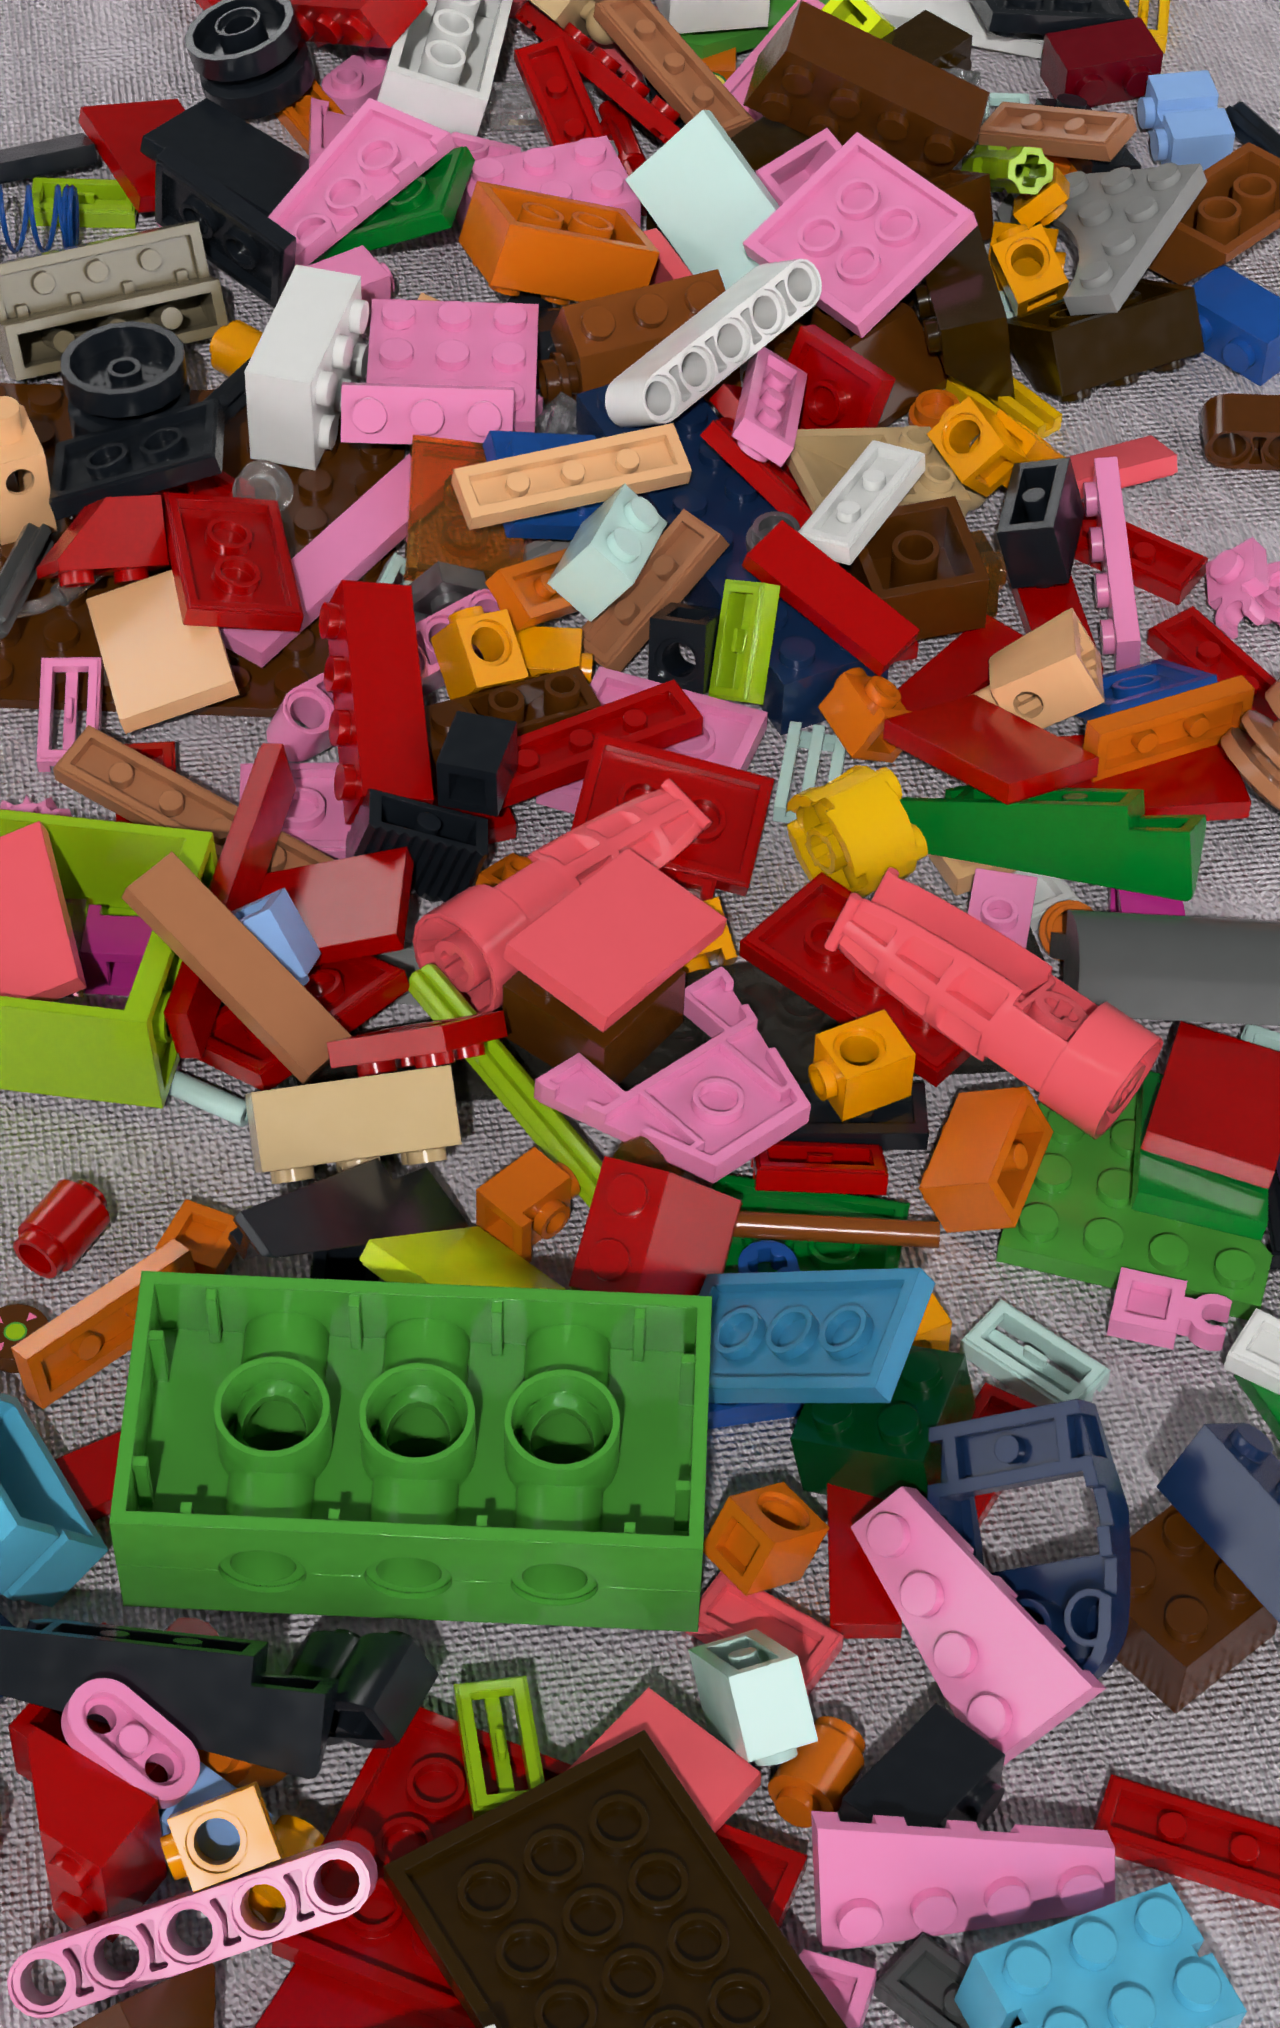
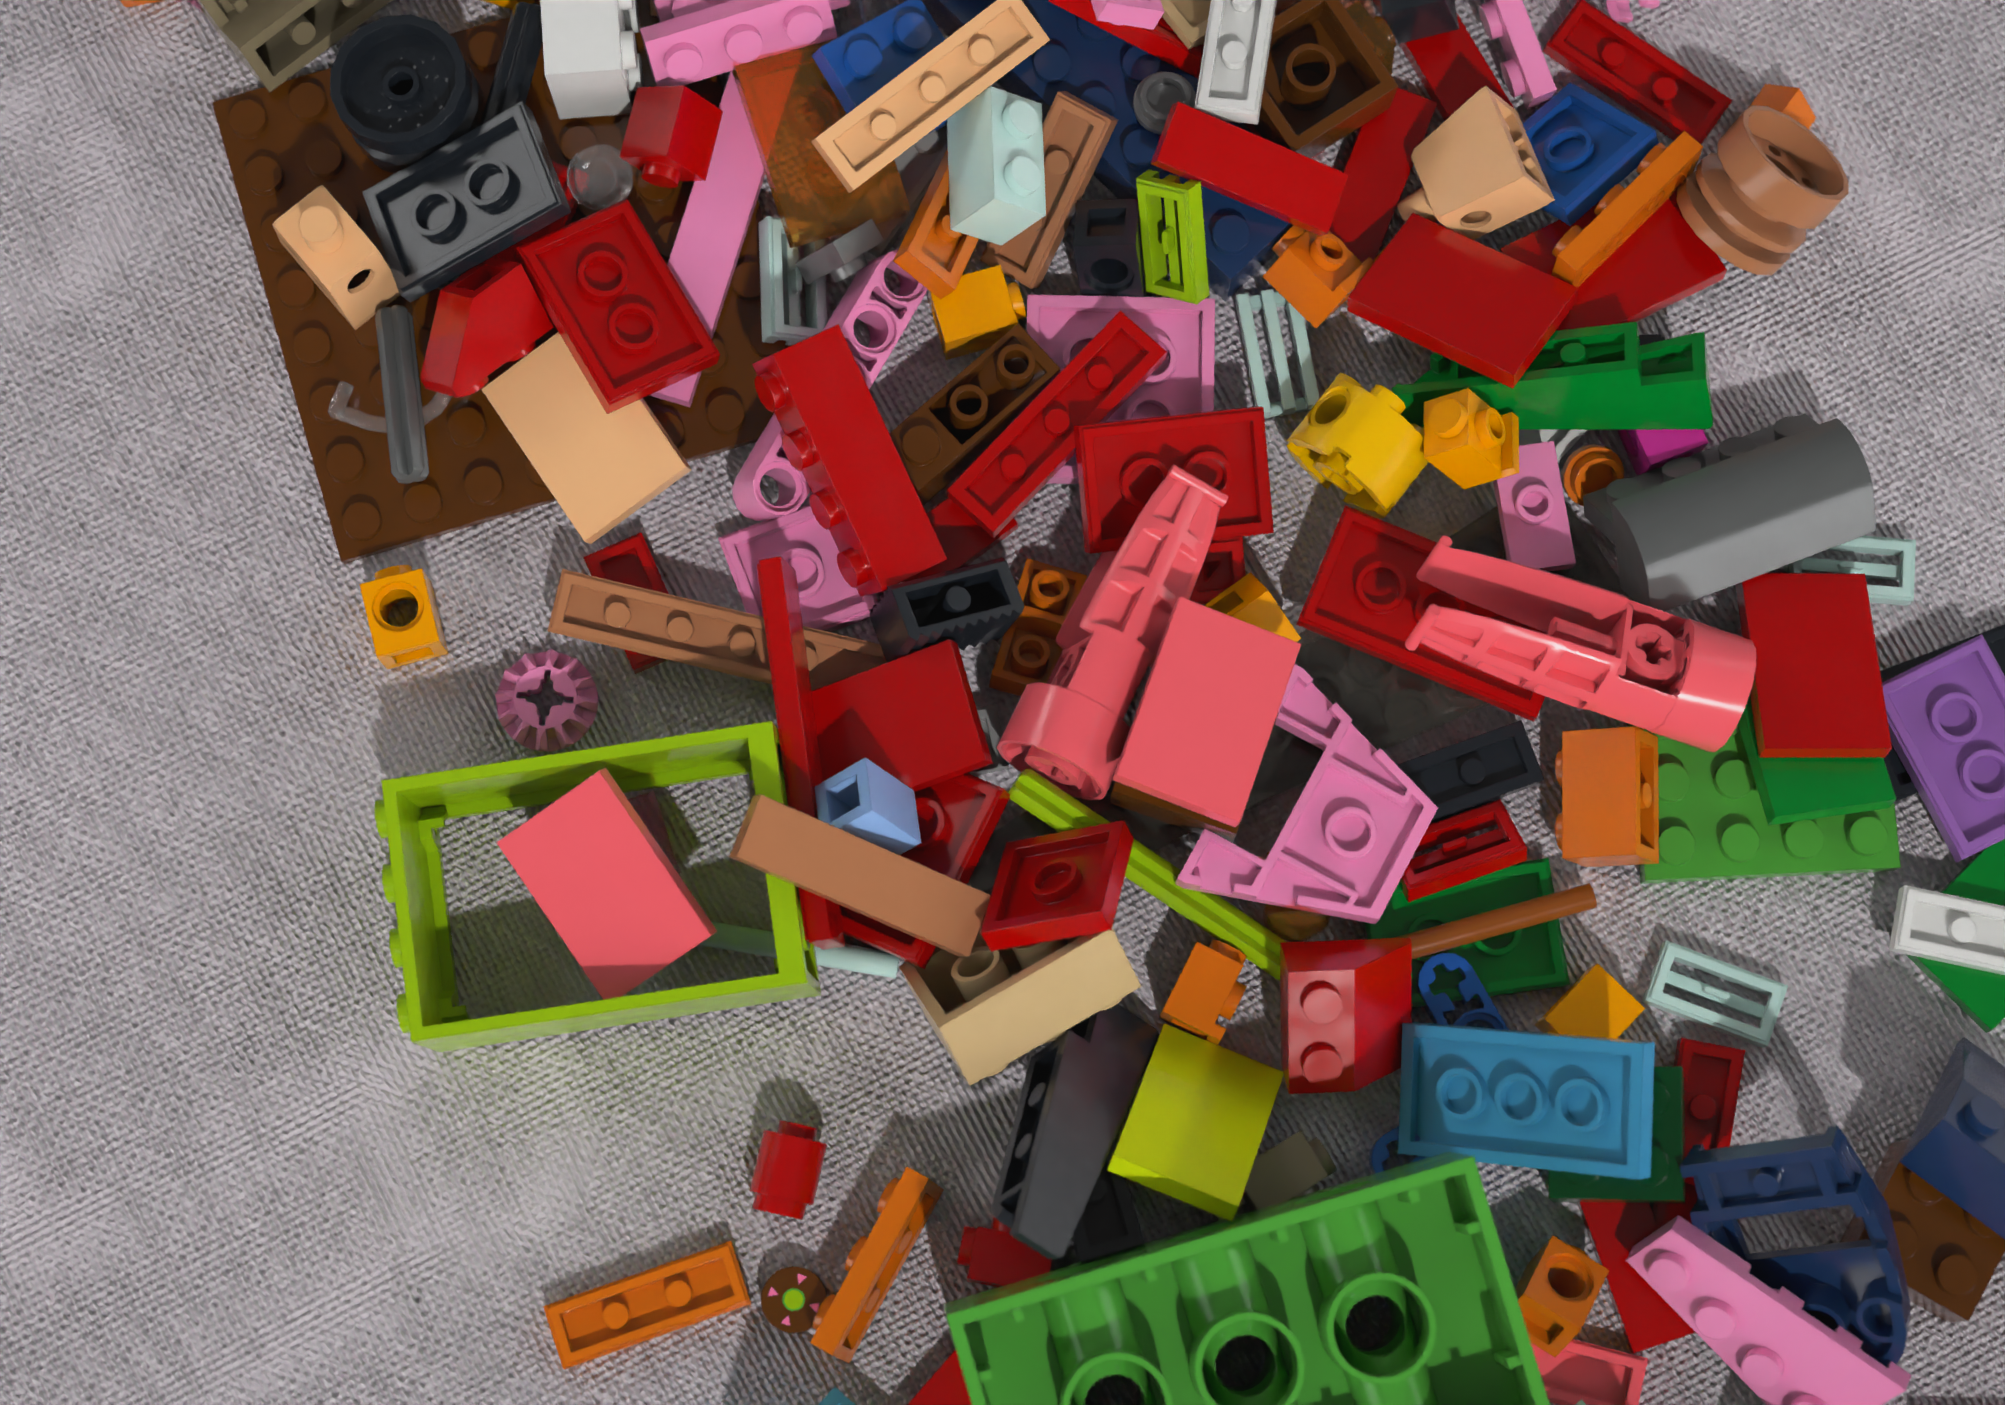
camera: 20 degrees left, 30 degrees up
(72, 666) = (505, 484): bright pink tile -> none
(112, 951) = (706, 824): dark pink brick -> none
(204, 1234) = (920, 1137): orange plate -> none
(337, 471) = (671, 135): none -> red brick
(477, 763) = (979, 508): black brick -> none
(495, 638) = (941, 355): light orange brick -> none
(862, 1065) = (1484, 719): light orange brick -> none
(953, 839) = (1470, 439): none -> light orange brick
(1155, 1309) = (1809, 905): bright pink plate -> none

